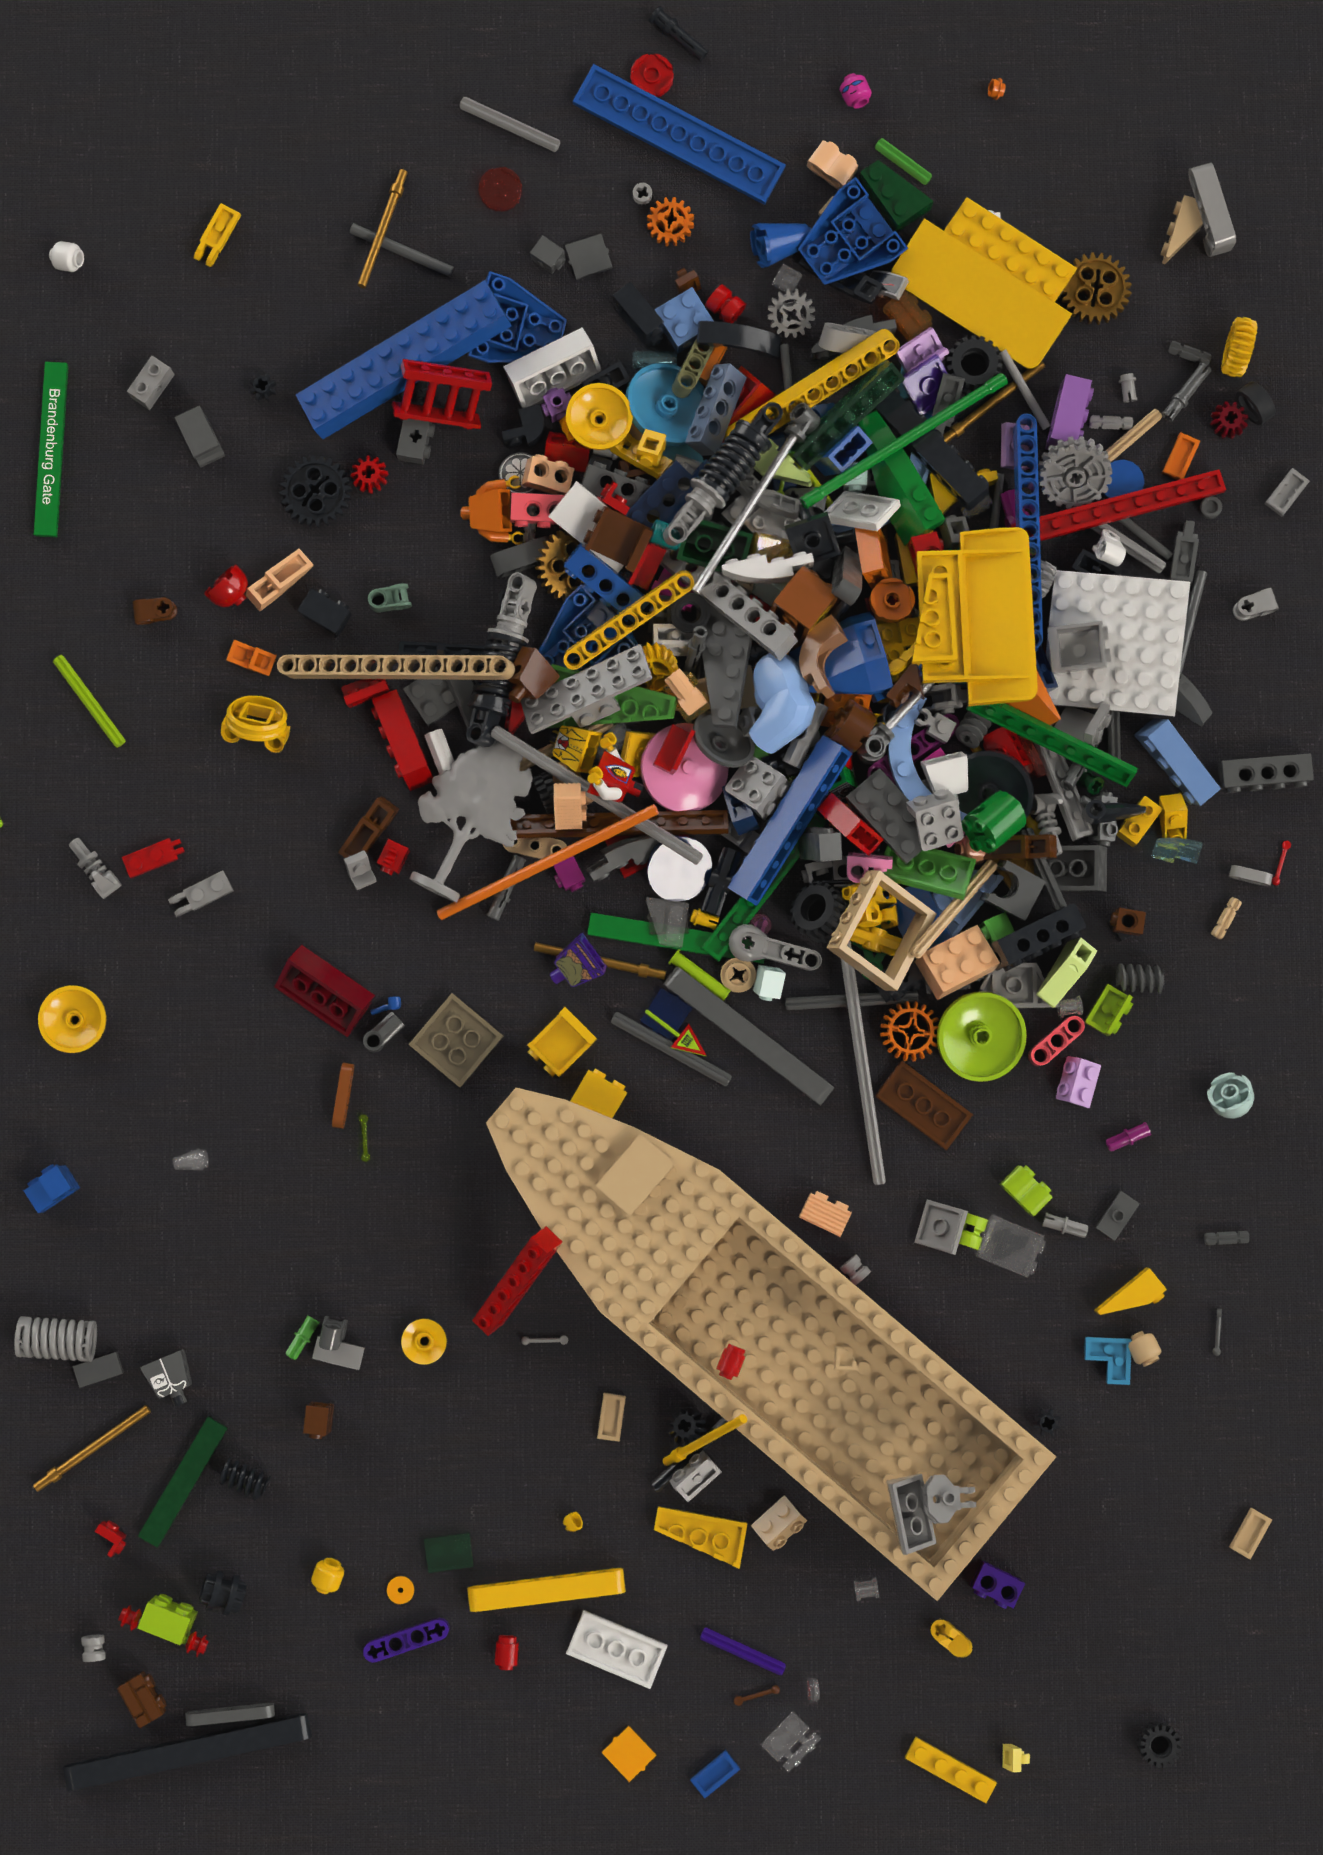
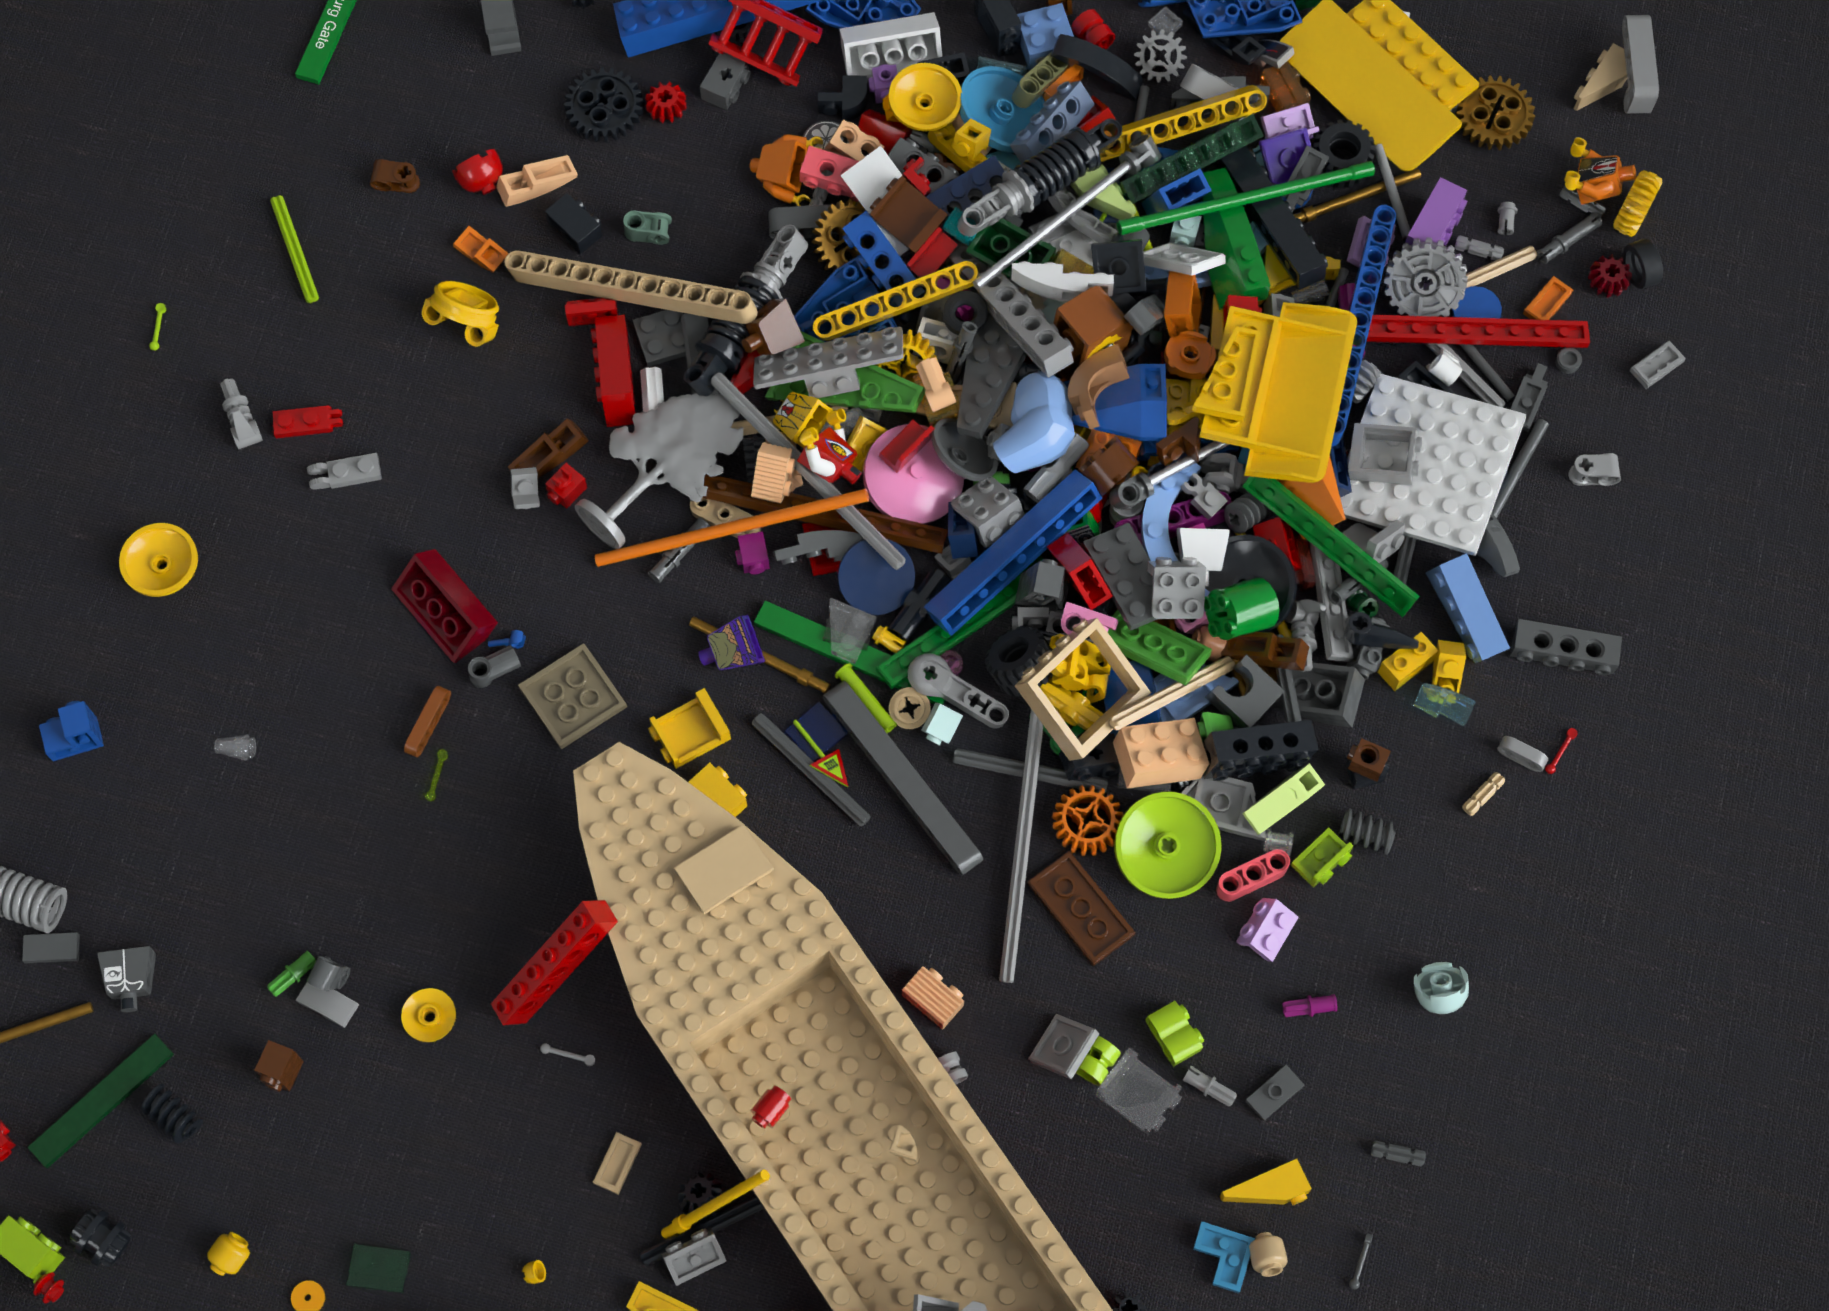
camera: 15 degrees right, 15 degrees down
(1200, 329) = (1597, 175): none -> torso

